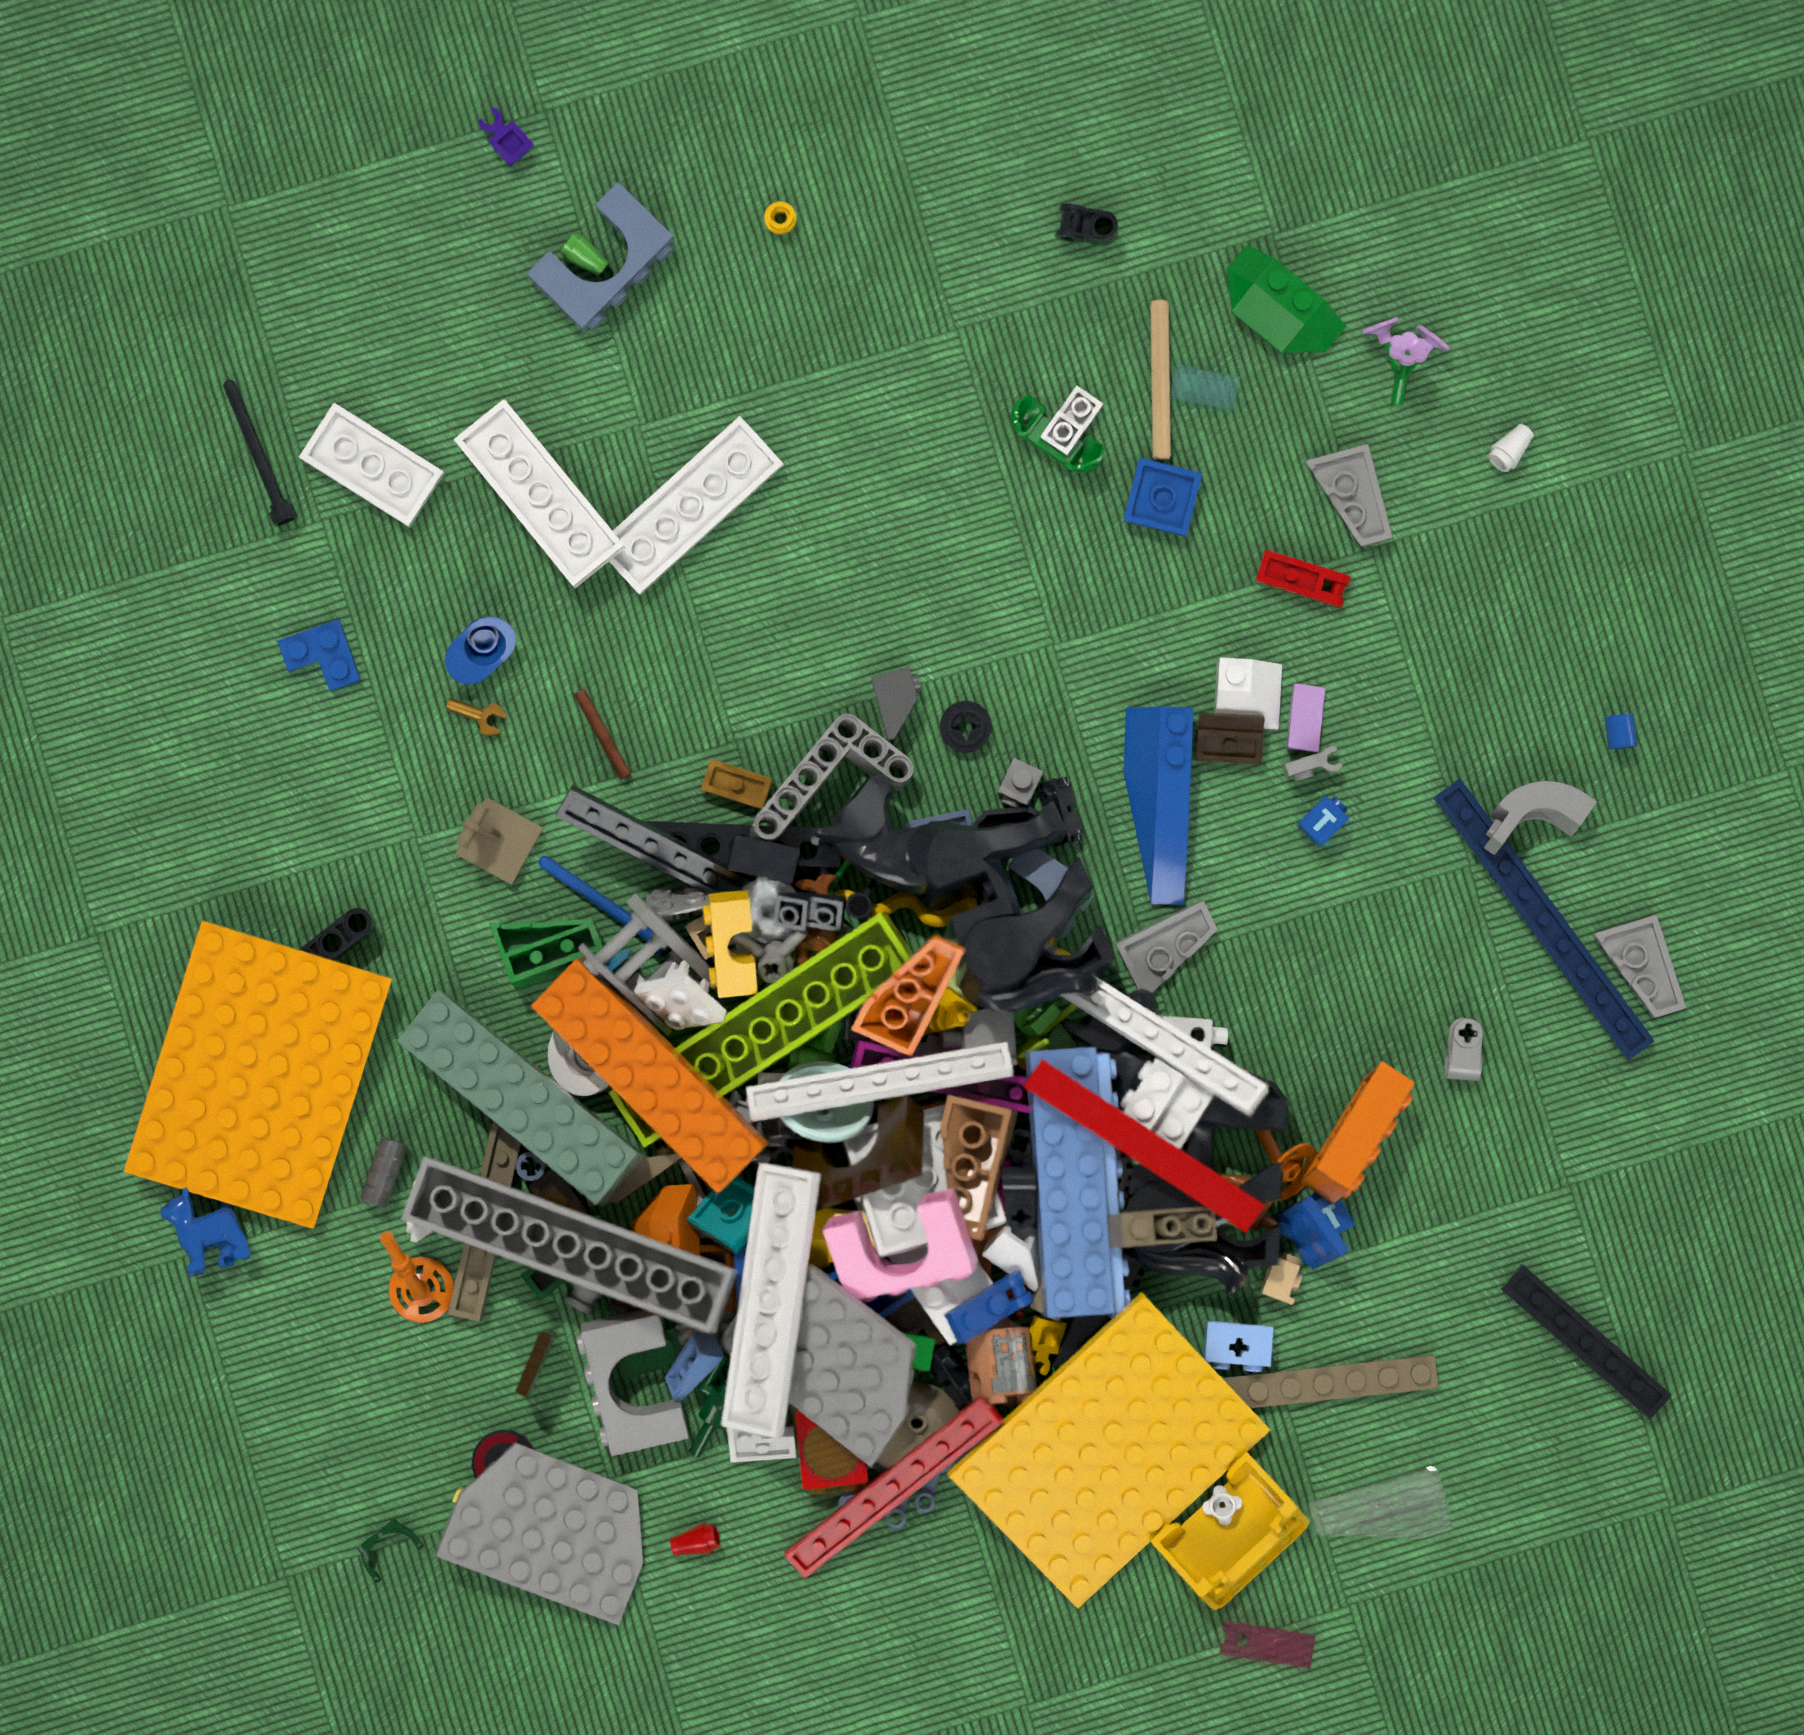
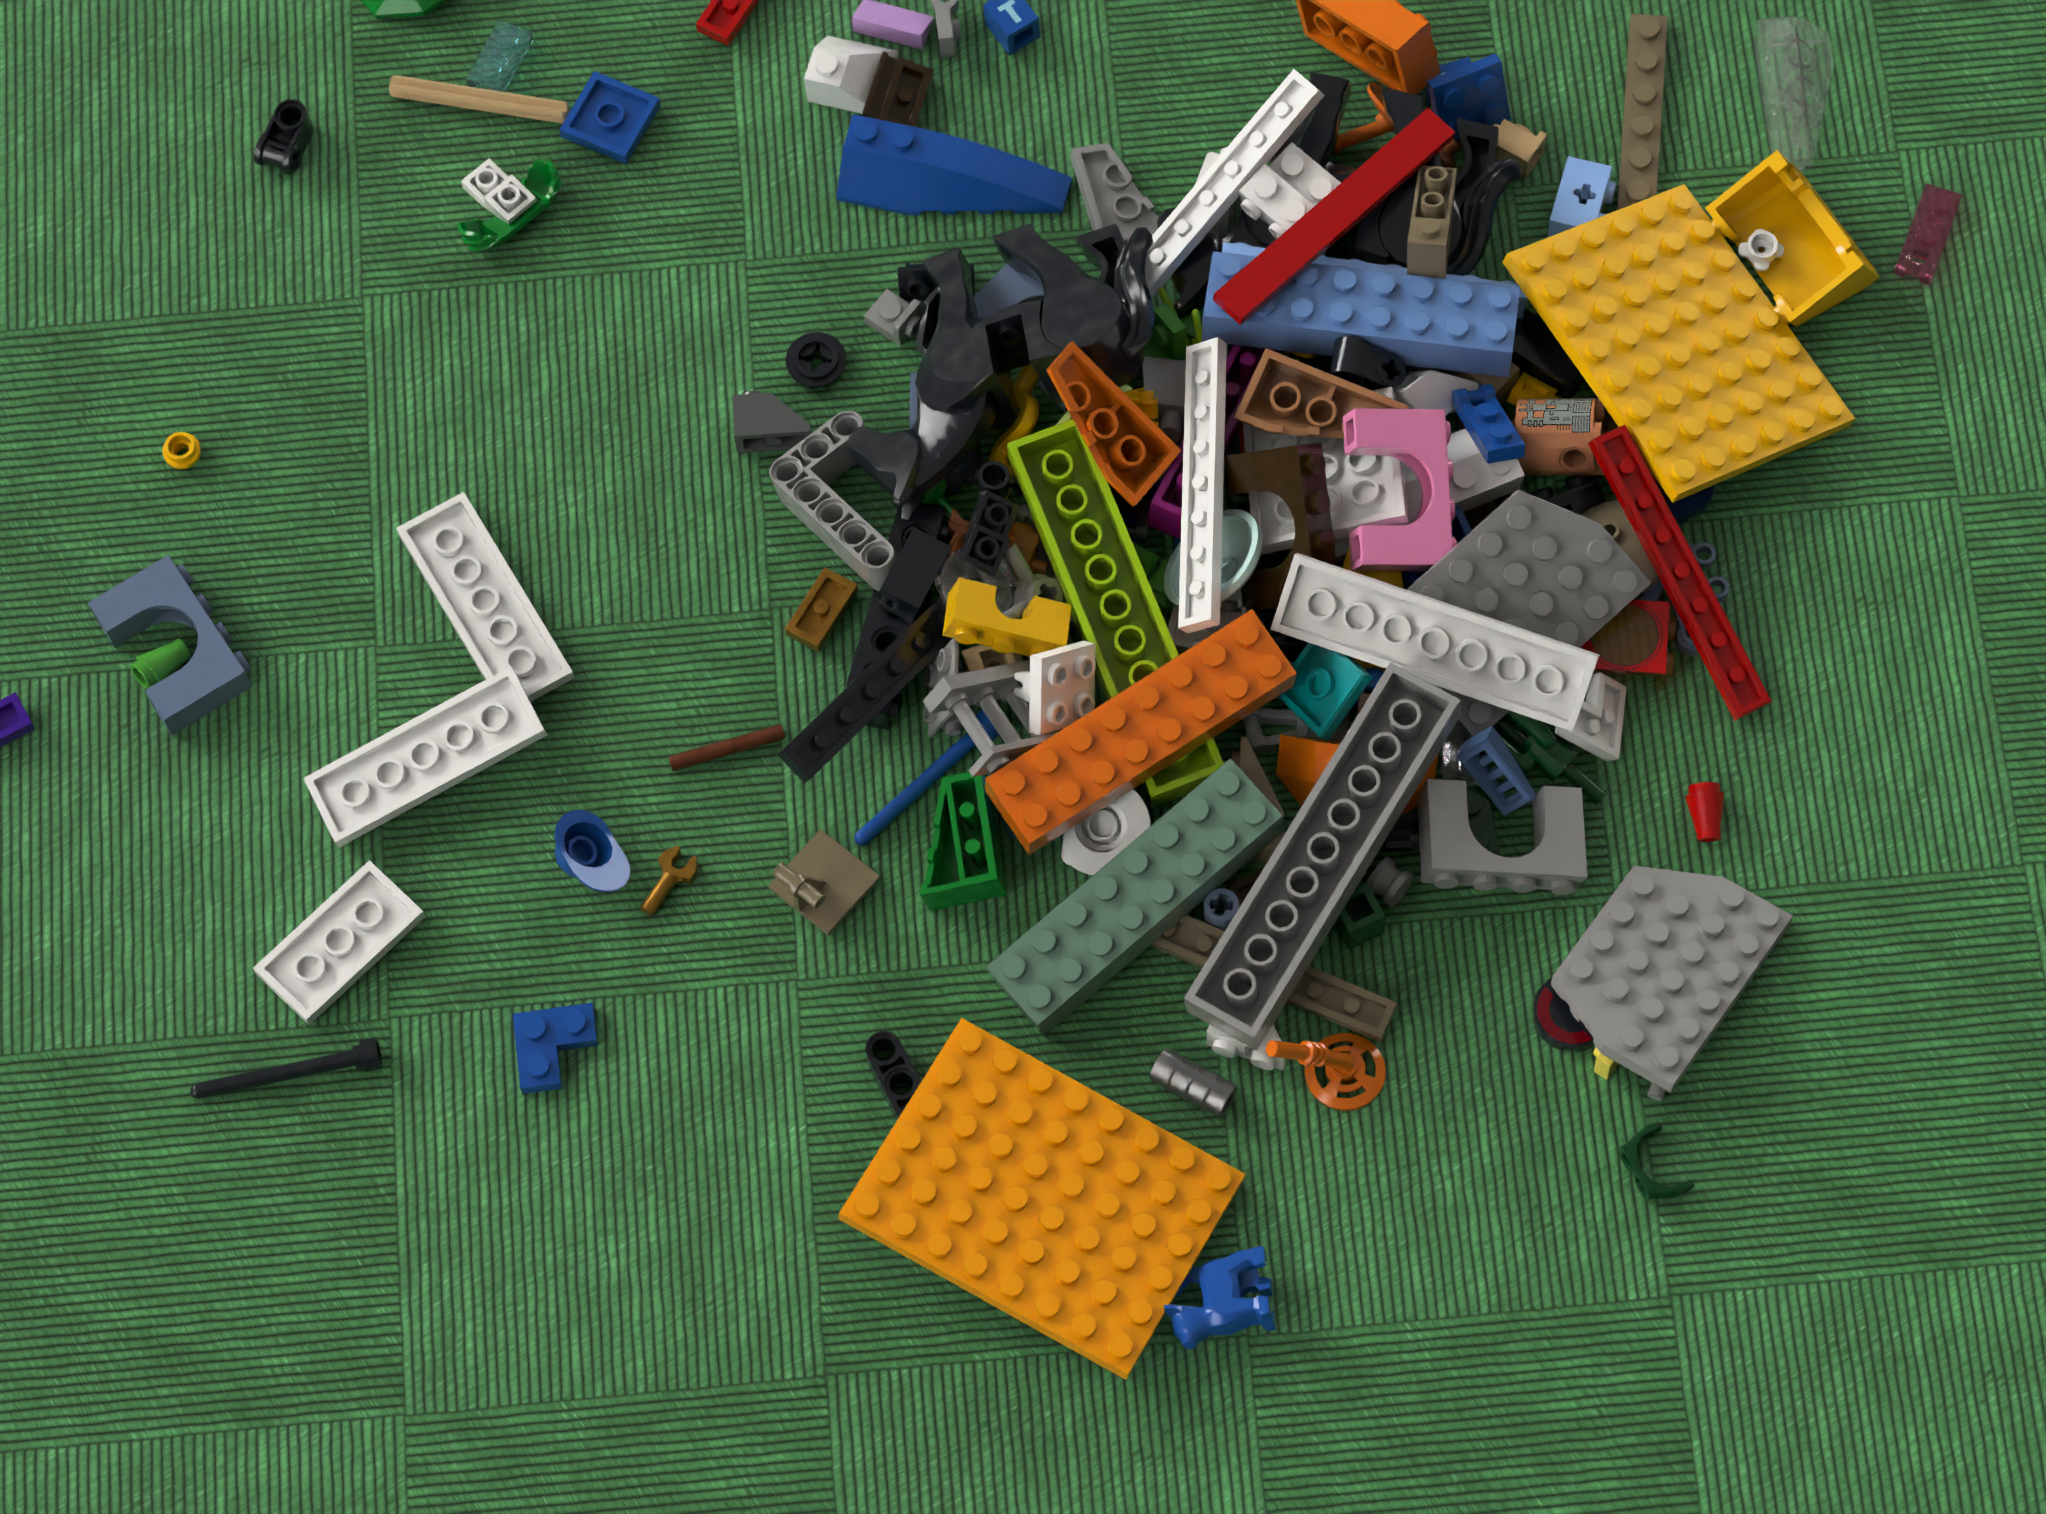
camera: 70 degrees left, 20 degrees down
(535, 1362) = (1458, 940): dark brown tile -> none

